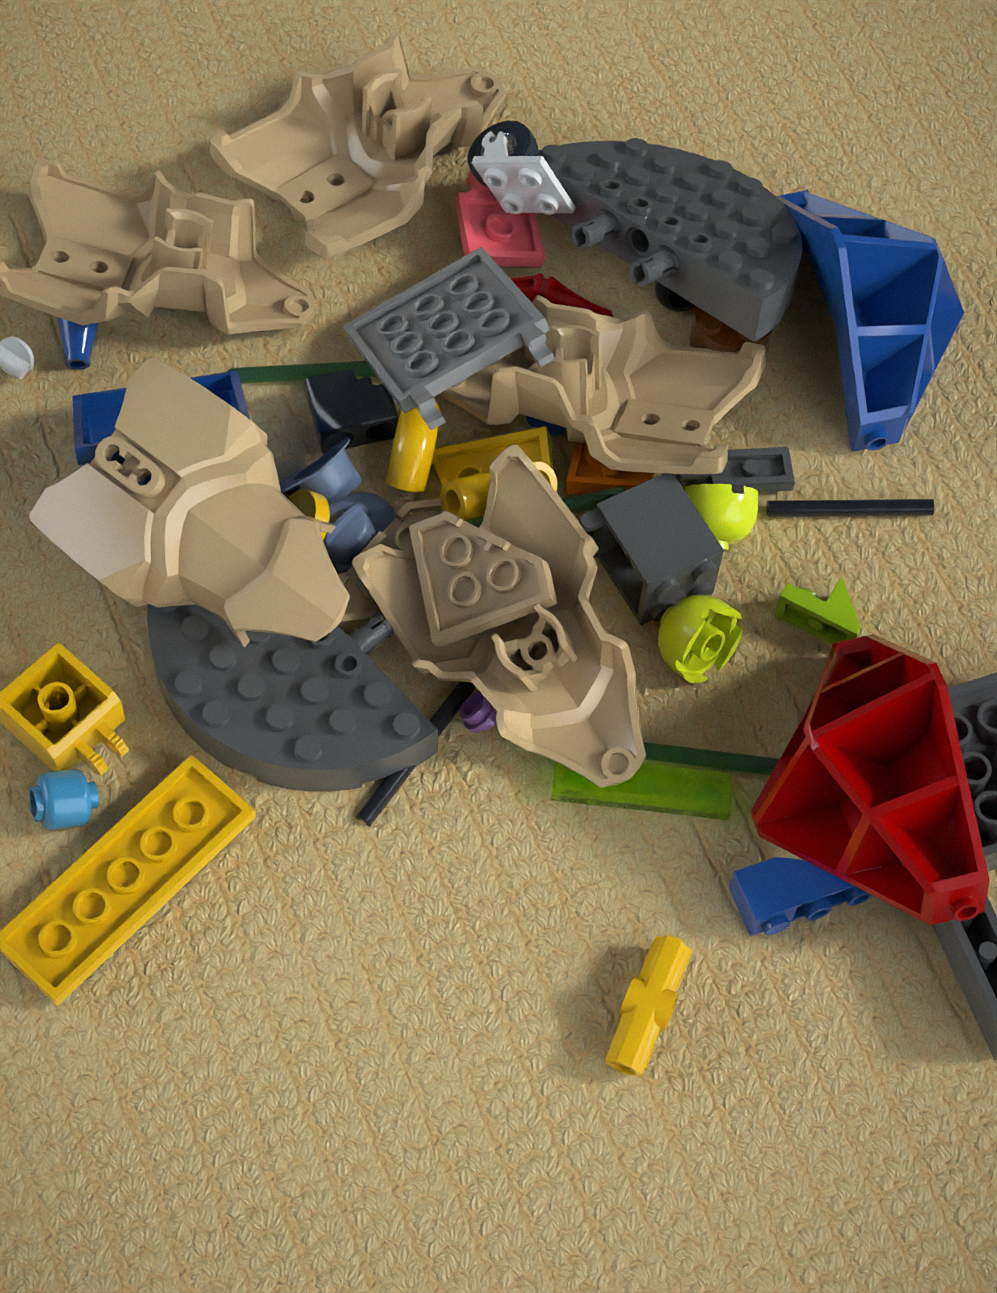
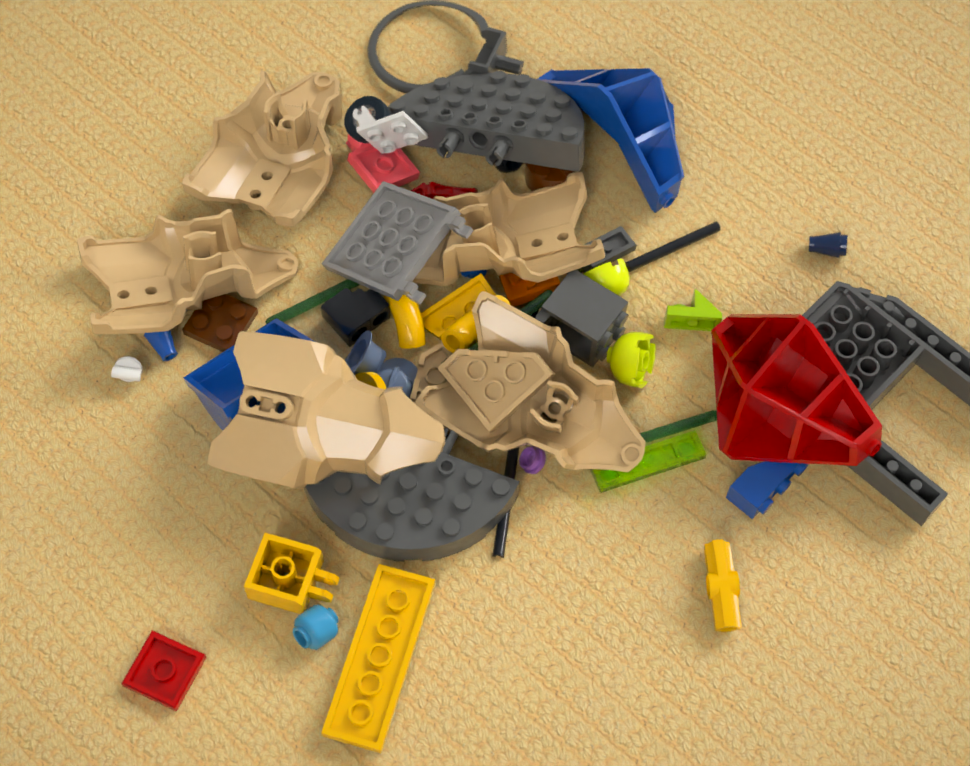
camera: 25 degrees left, 0 degrees up
(172, 337) = (220, 321): none -> reddish brown plate
(734, 144) = (490, 59): none -> dark grey brick

